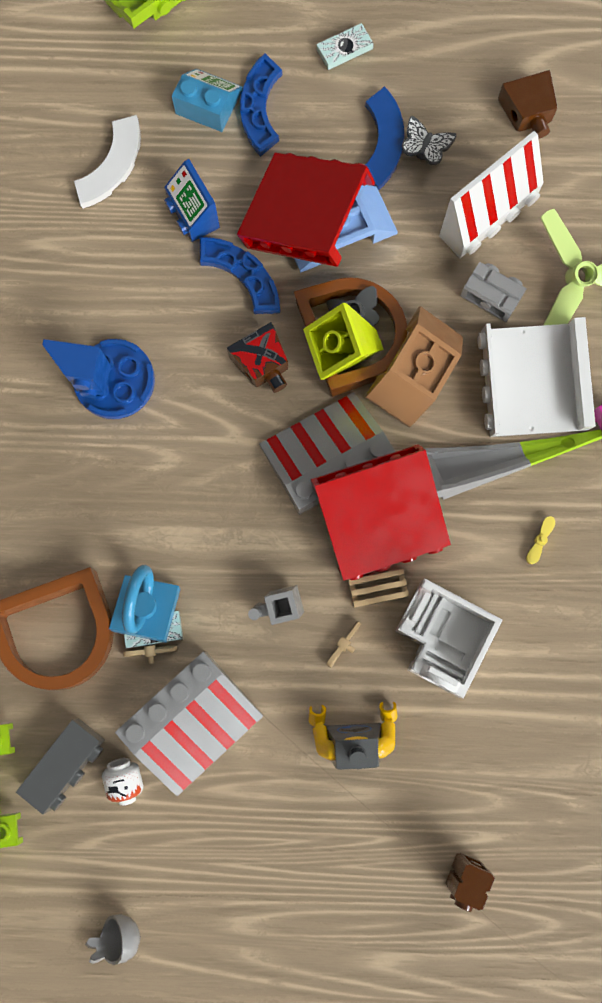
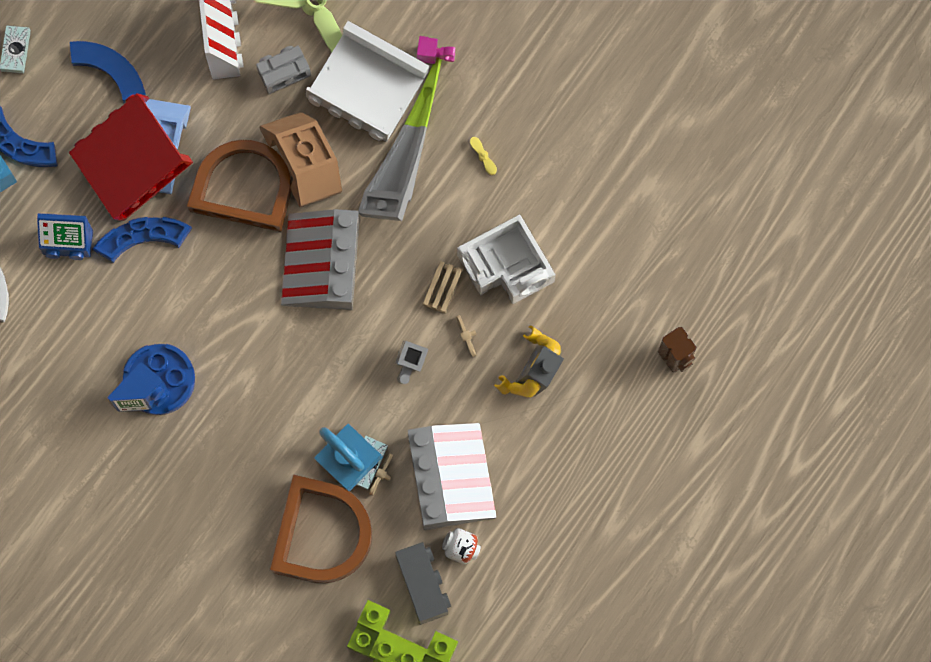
camera: 60 degrees left, 5 degrees down
(117, 940) = (567, 614): light grey piece -> none
(261, 358) = (219, 261): torso -> none
(341, 340) = (250, 196): neon yellow slope -> none
(363, 305) = (230, 174): dark grey animal -> none
(382, 512) = (392, 245): red panel -> none
(424, 144) = (137, 42): dark grey animal -> none

